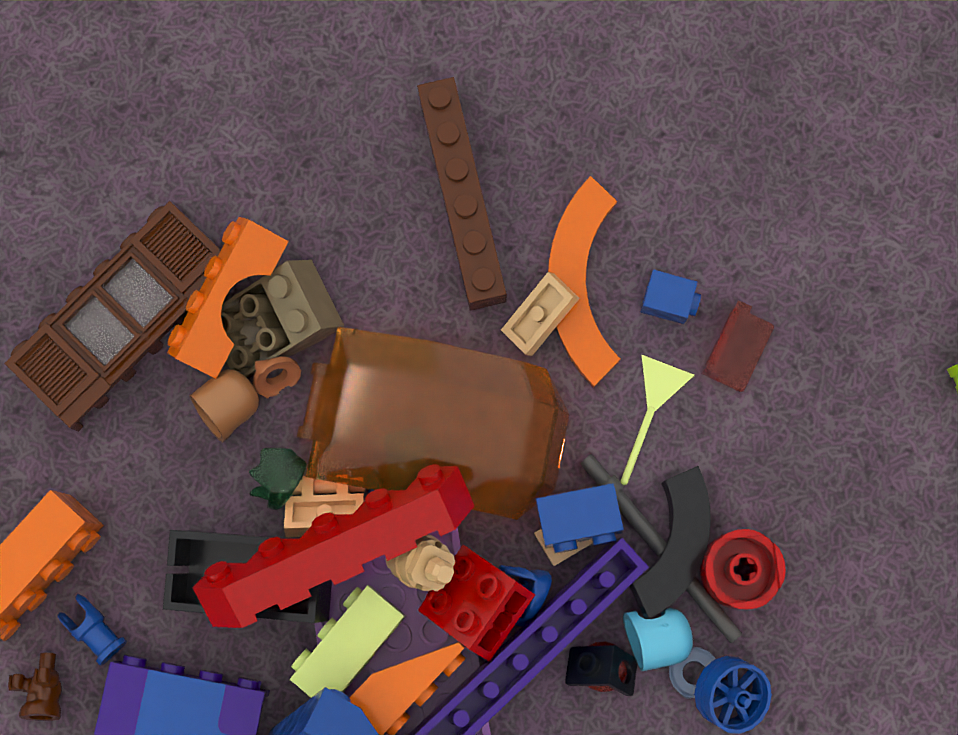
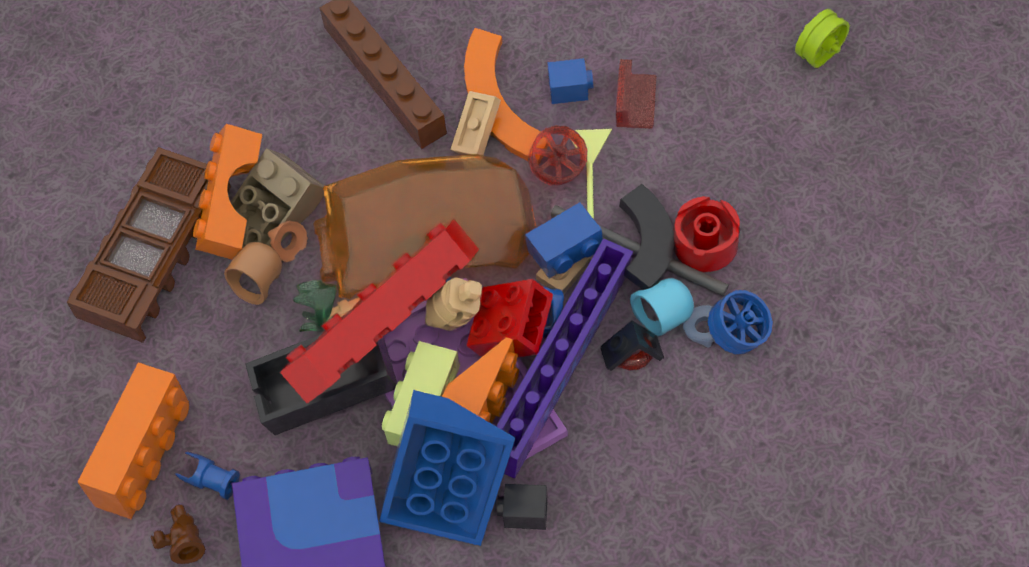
camera: 20 degrees left, 20 degrees down
(617, 394) = (557, 155): none -> clear red wheel

